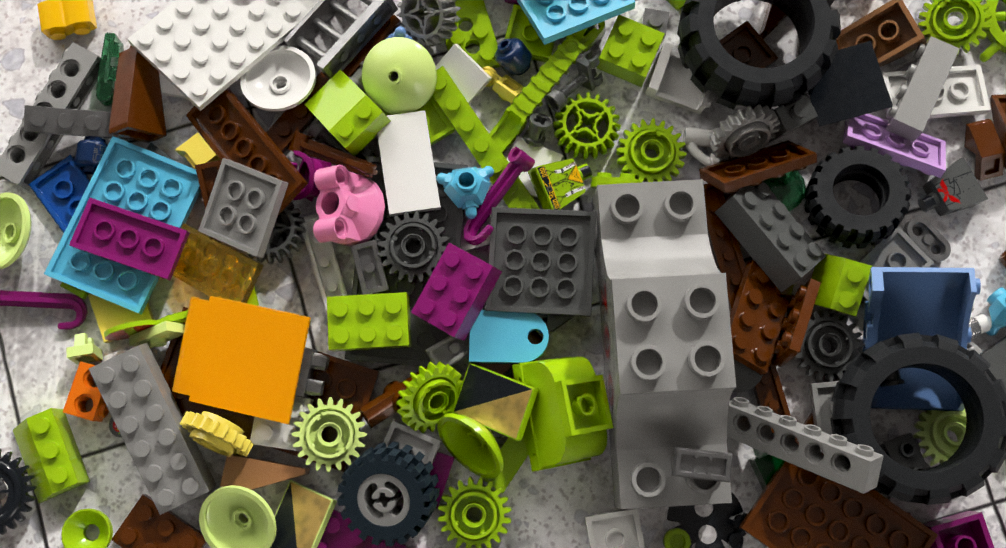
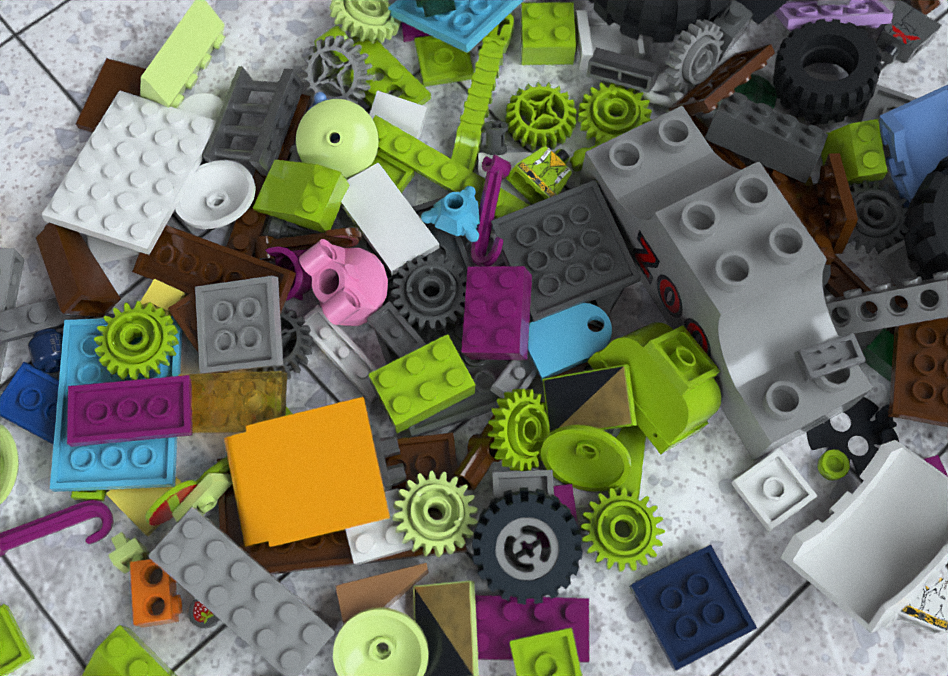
camera: 25 degrees left, 10 degrees down
(108, 68) = (31, 261): clear green hinge -> none
(147, 171) = (151, 351): none -> lime gear
(216, 433) = (316, 565): light yellow gear -> none
(504, 86) = (446, 114): light yellow plate -> none
(513, 56) = (439, 82): dark blue head -> none
(585, 78) = (518, 75): dark grey bar -> none
(676, 117) = (623, 70): none -> flat silver piece
(928, 238) = (906, 82): flat silver plate -> none

